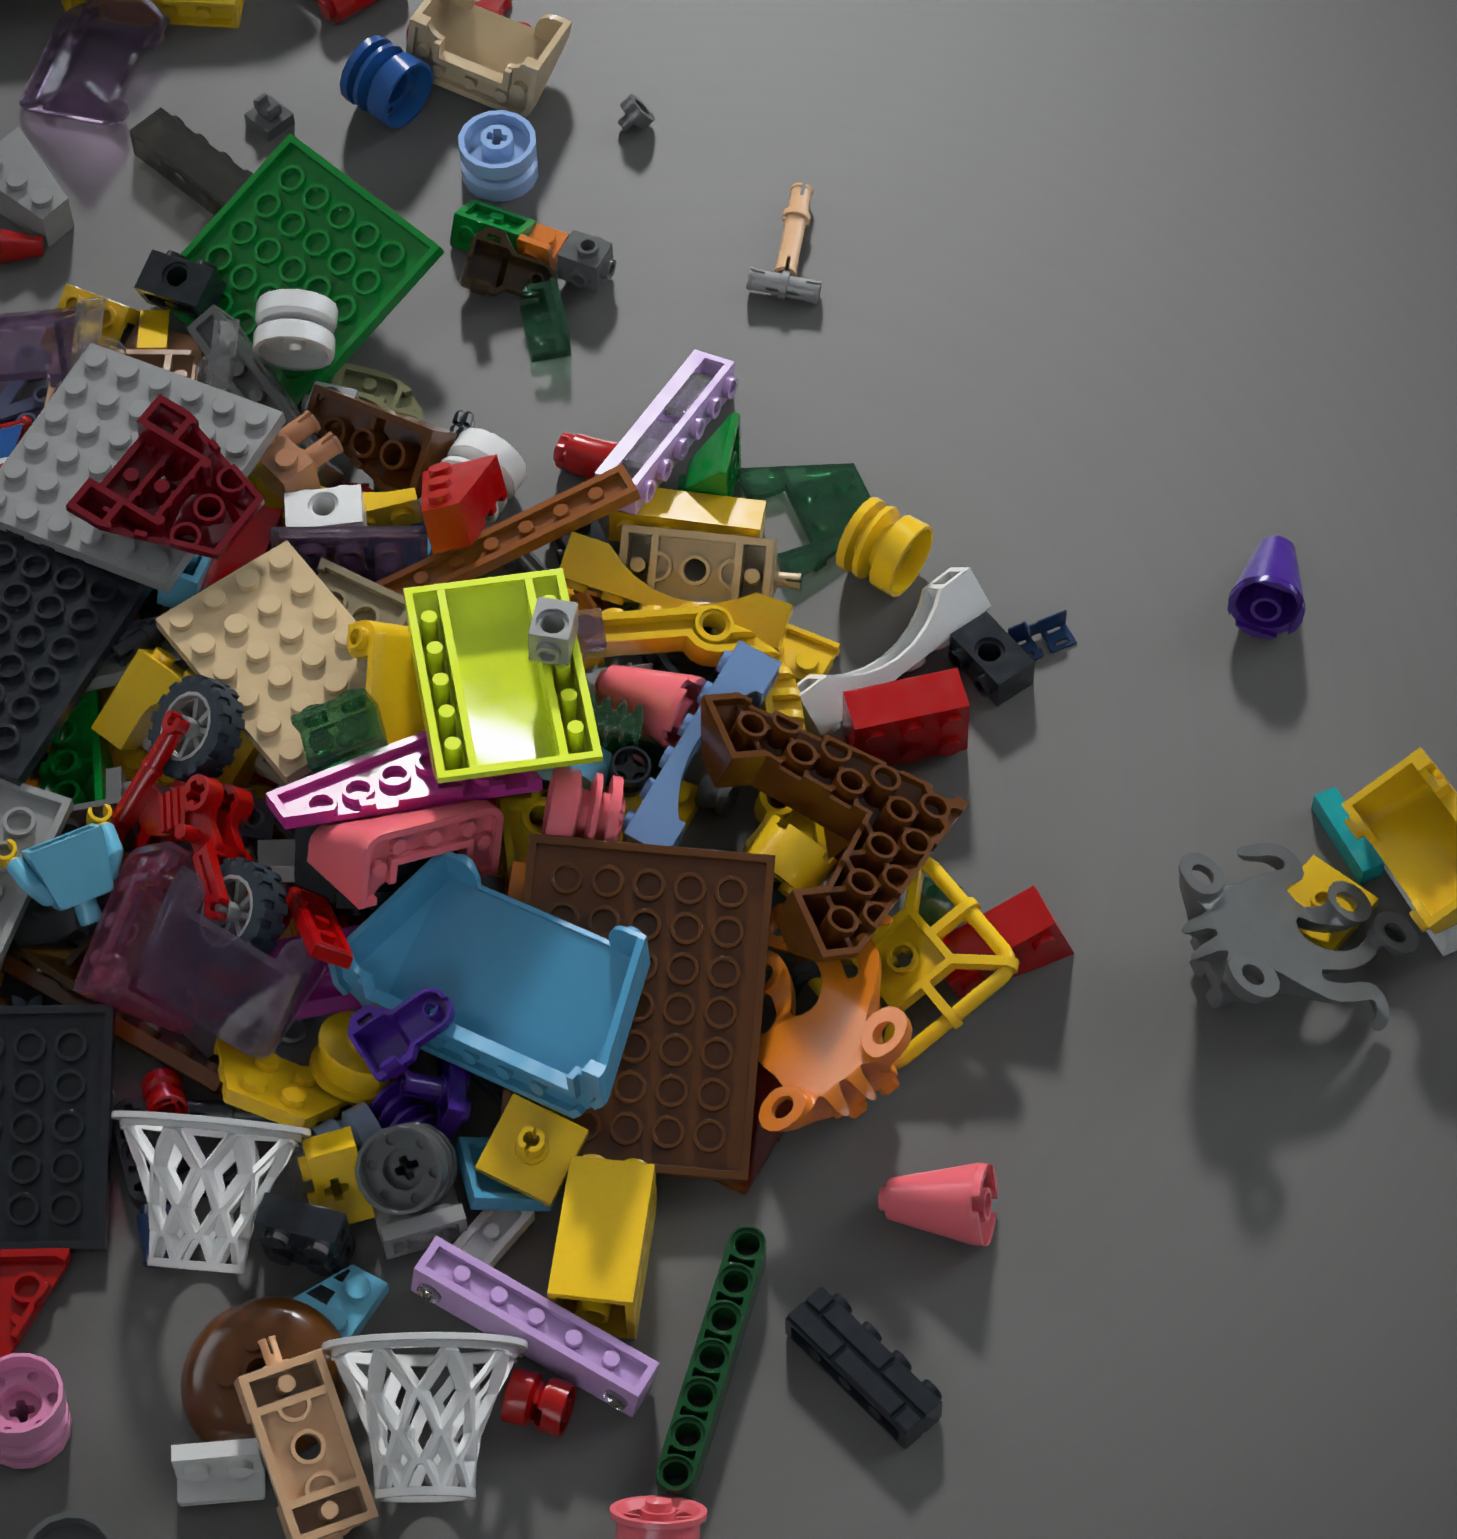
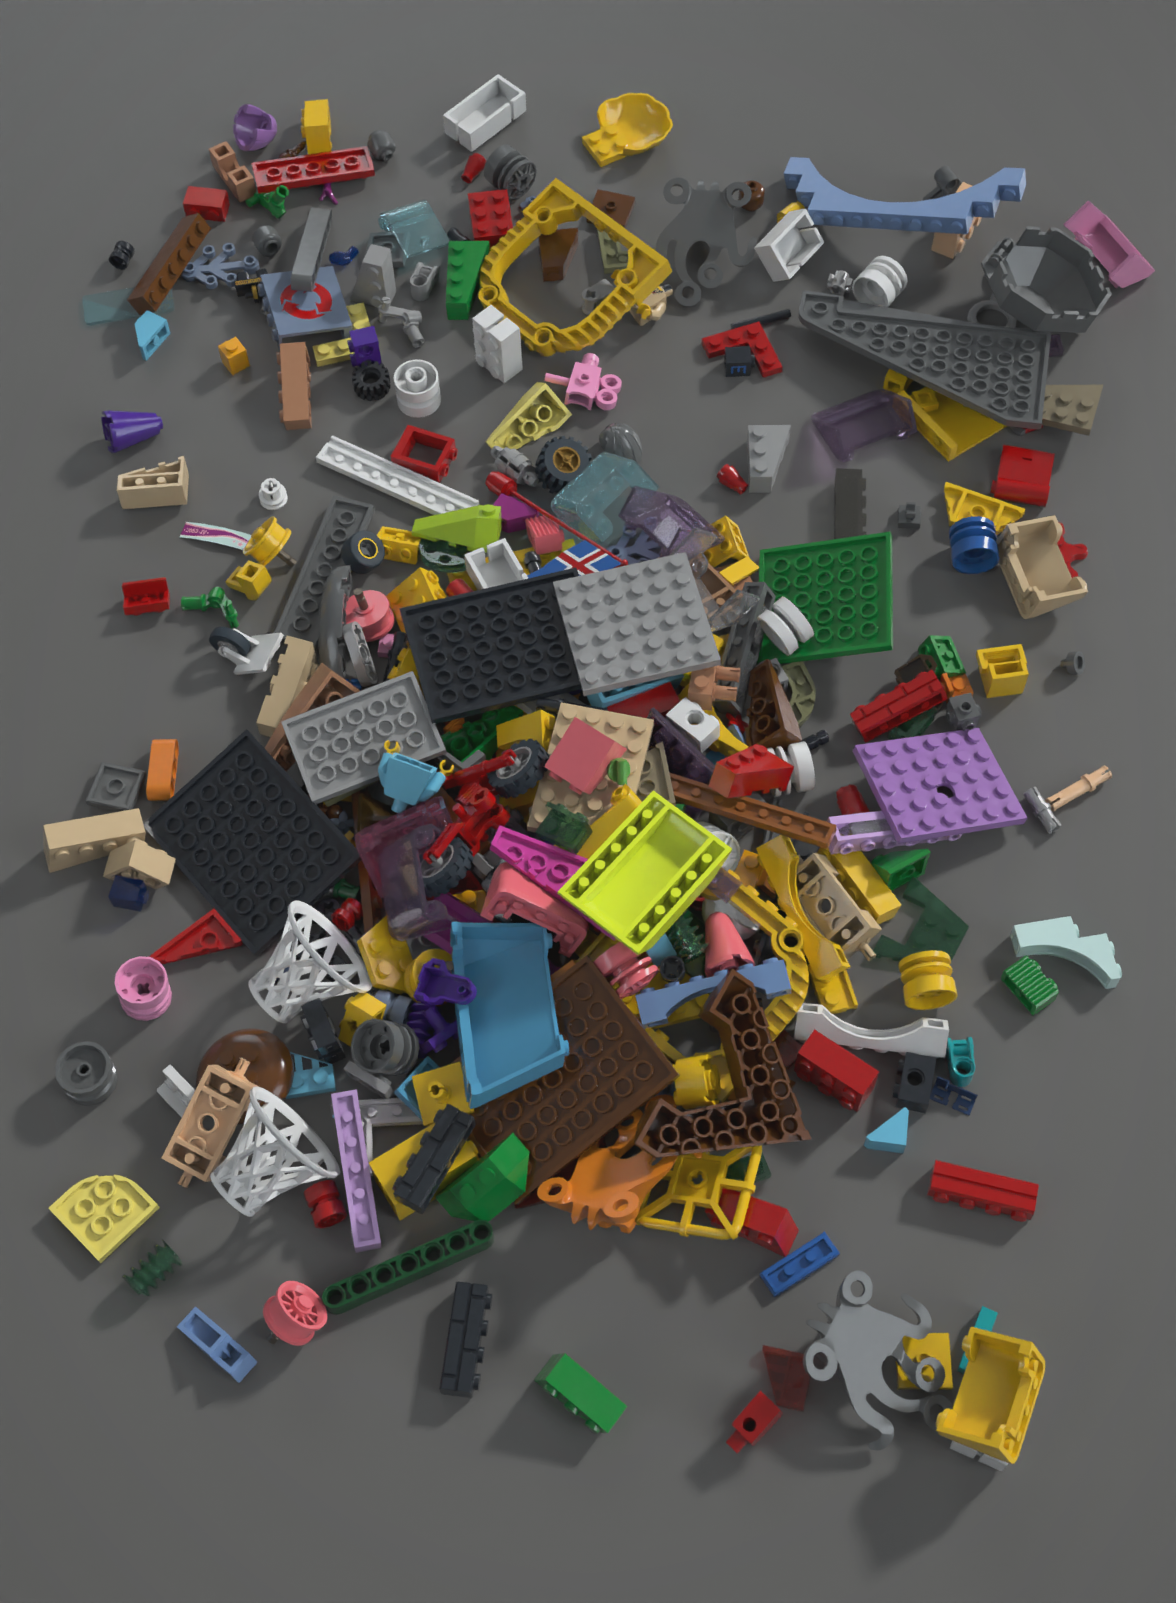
camera: 50 degrees right, 5 degrees up
(130, 1075) = (346, 890): none -> dark green bush
(164, 273) = (770, 559): black brick -> none
(171, 488) = (624, 650): dark red wedge -> none
(268, 637) = (583, 757): none -> coral slope
(319, 927) = (459, 907): red tile -> none
(323, 52) = (968, 503): none -> yellow wing
(324, 619) = (618, 770): none -> bright green plate
(498, 155) = (984, 624): light blue wheel -> none
(512, 310) = (898, 705): none -> red brick
(553, 631) = (688, 865): light grey brick -> none
(574, 182) = (1003, 670): none -> yellow plate
(614, 357) = (910, 769): none -> medium lavender plate
(620, 1207) = (434, 1158): none -> black brick
(695, 1189) = (488, 1183): none -> green wedge
(945, 1202) = (584, 1308): coral cone -> none
(960, 390) = (1061, 939): none -> light aqua arch
(983, 460) = (1030, 985): none -> green brick
(1010, 595) = (960, 1056): none -> teal piece
(1034, 729) = (890, 1135): none -> medium azure slope
(1044, 1283) = (580, 1393): none -> green wedge
(1096, 944) = (799, 1264): none -> blue tile
(1180, 693) = (983, 1190): none -> red brick
(1220, 1052) = (787, 1377): none -> clear red wing
(1246, 1119) = (761, 1411): none -> red torso
(1269, 591) = (1087, 1185): dark purple cone -> none

